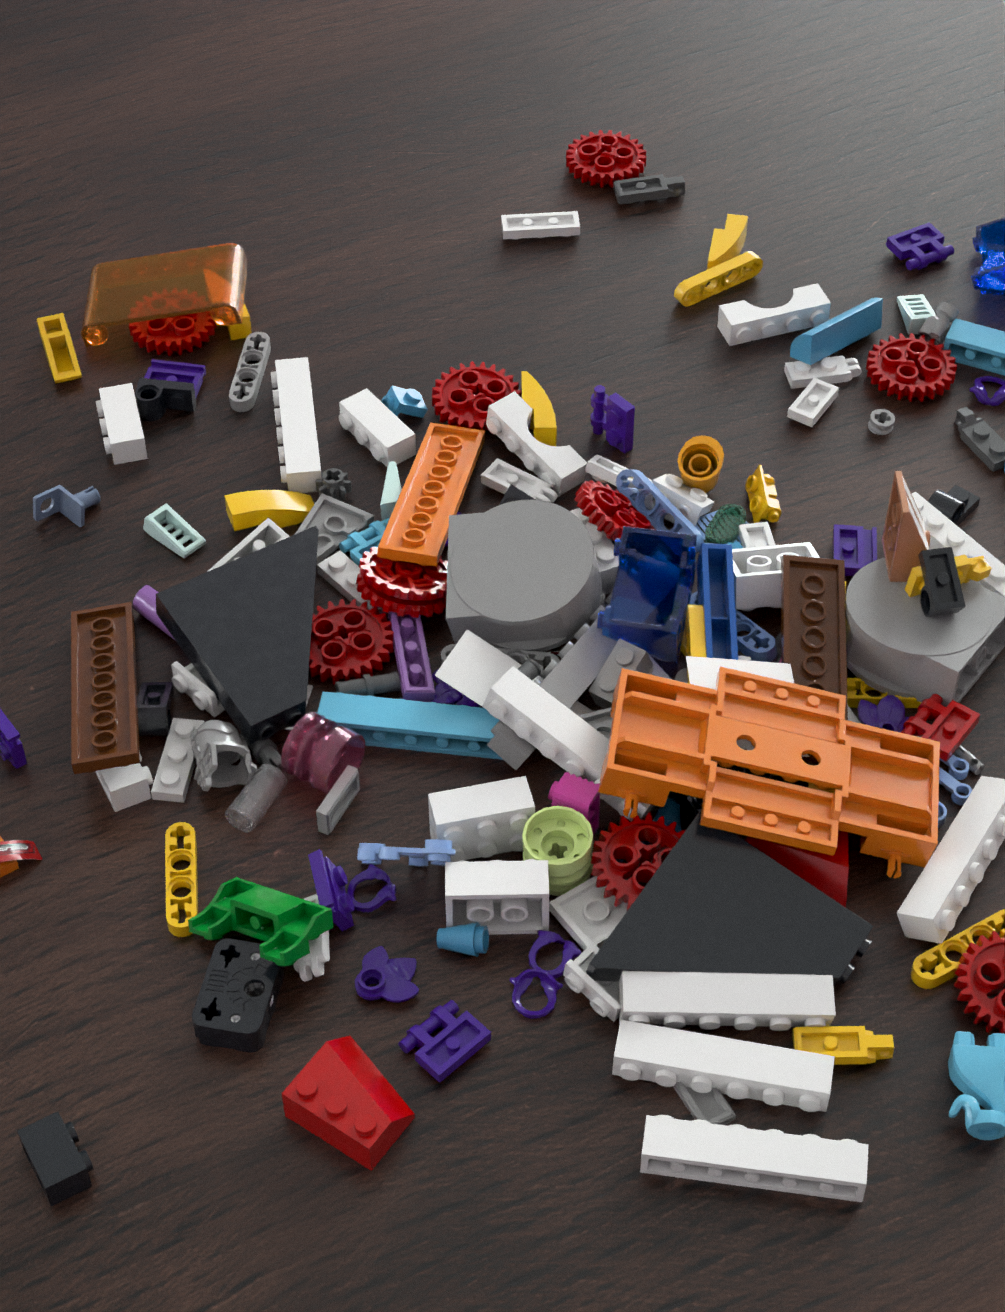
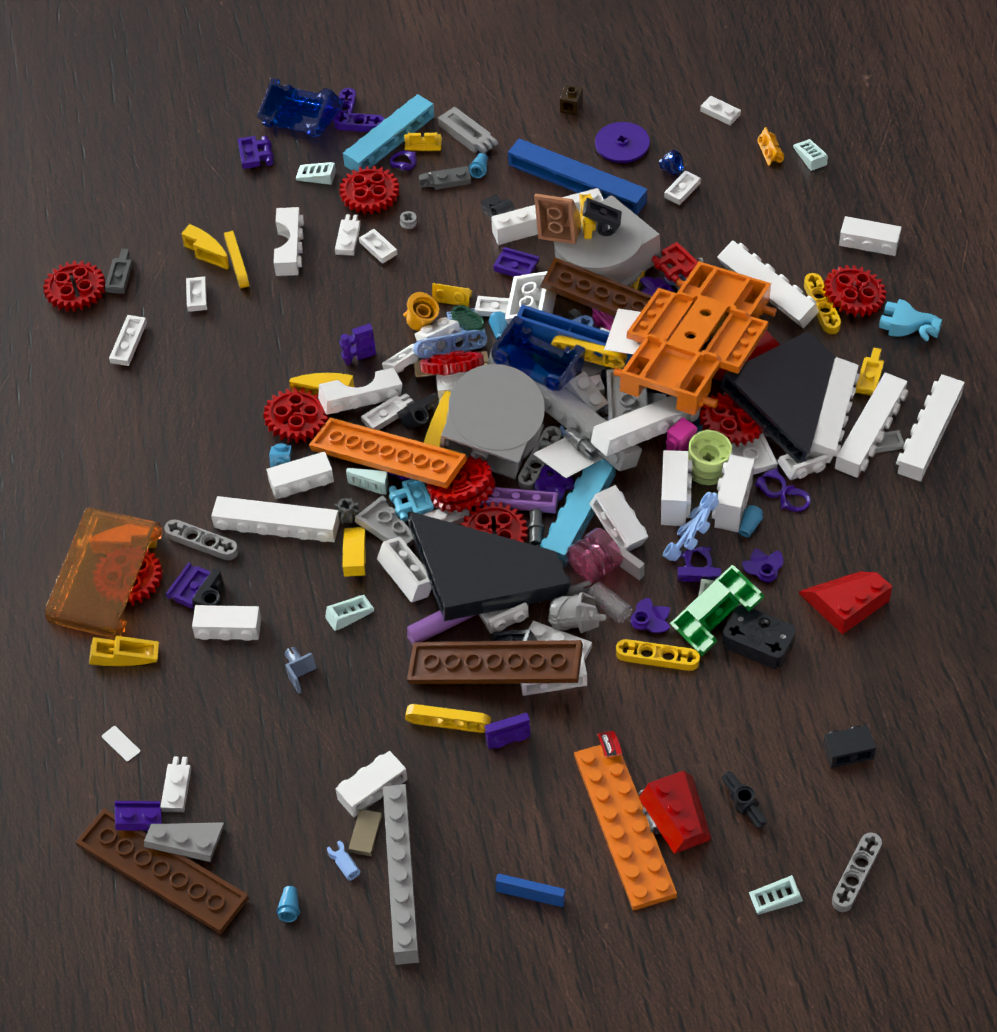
camera: 70 degrees left, 5 degrees up
(18, 669) = (447, 718): none -> yellow beam
(251, 857) = (653, 617): none -> dark purple plate
(399, 767) = (618, 518): none -> white brick
(451, 1046) = (821, 540): dark purple plate -> none
(643, 260) = (196, 294): none -> white plate
(838, 332) = (324, 212): dark azure brick -> none
(938, 325) = (343, 165): light grey piece -> none

